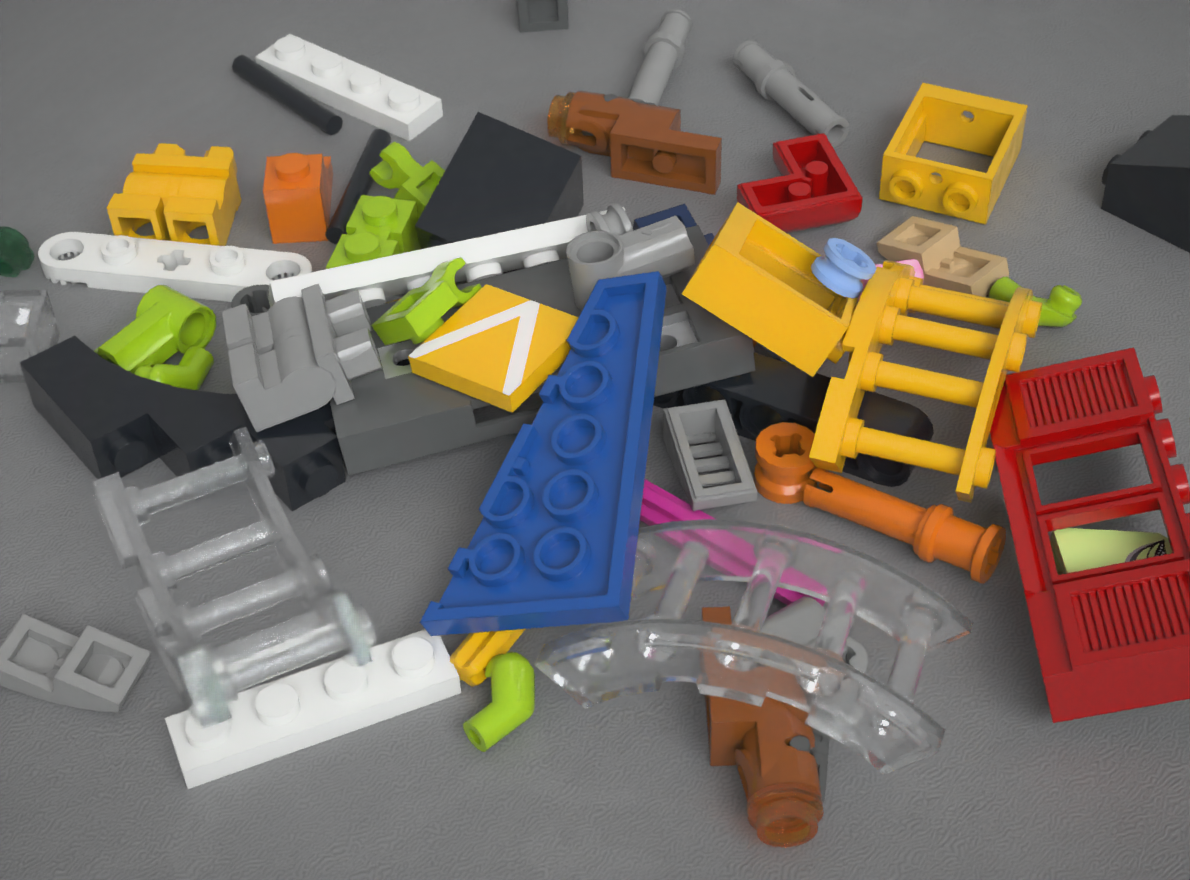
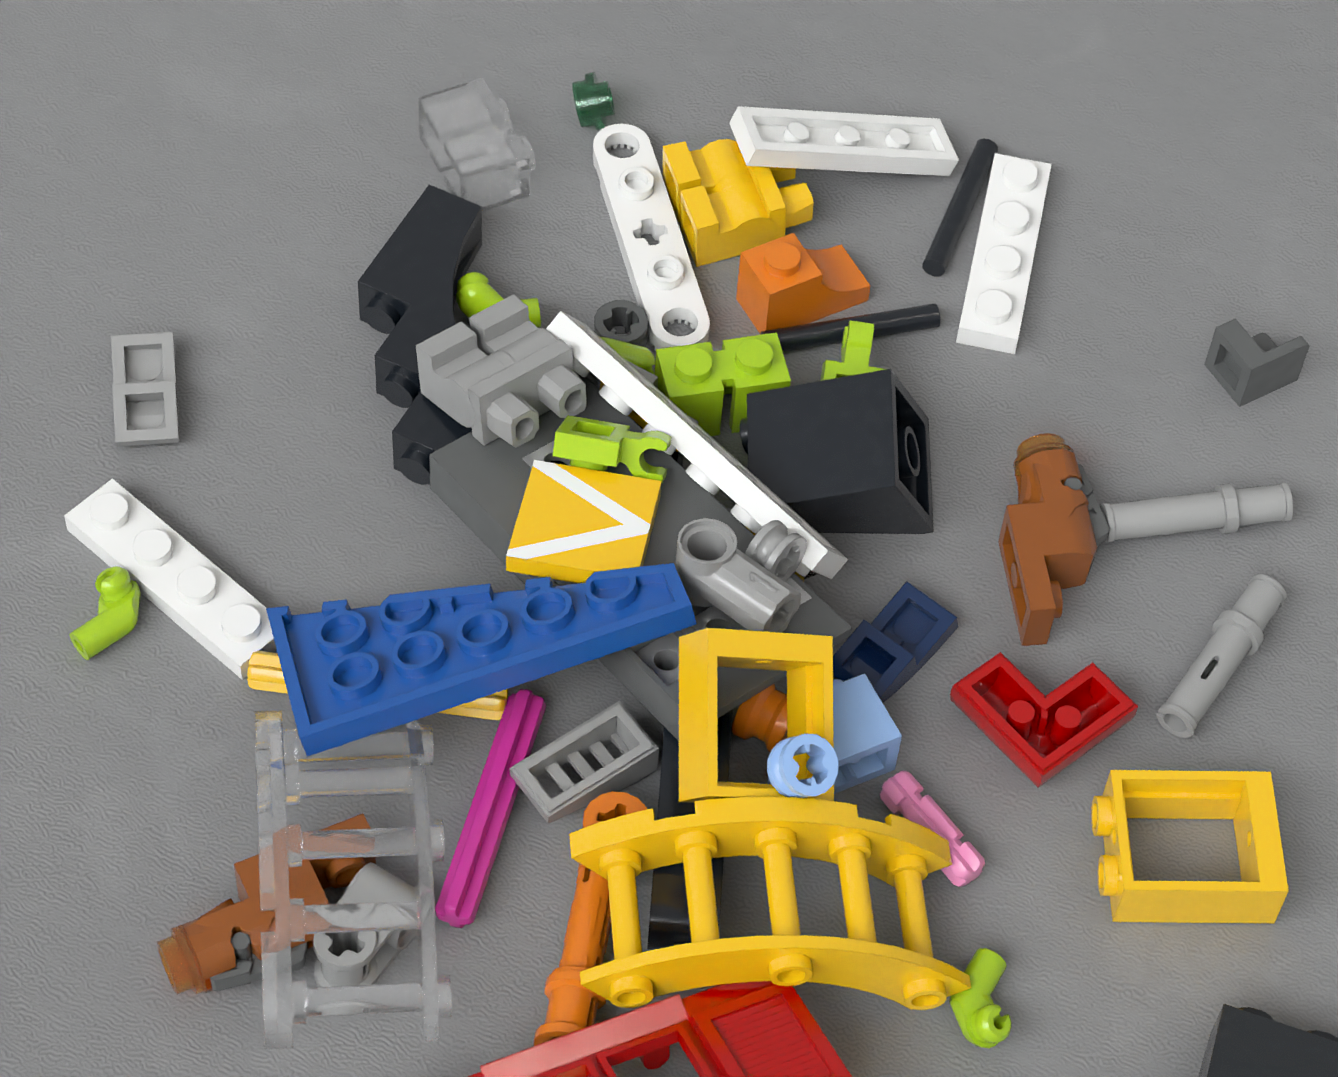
camera: 60 degrees right, 10 degrees up
(162, 326) = (554, 269): lime piece -> none
(187, 114) = (843, 141): none -> white plate
(217, 674) = (135, 470): clear fence -> none
(327, 765) = (116, 613): none -> lime arm
(511, 700) = (233, 715): lime arm -> none
(942, 258) = (1011, 891): tan slope -> none

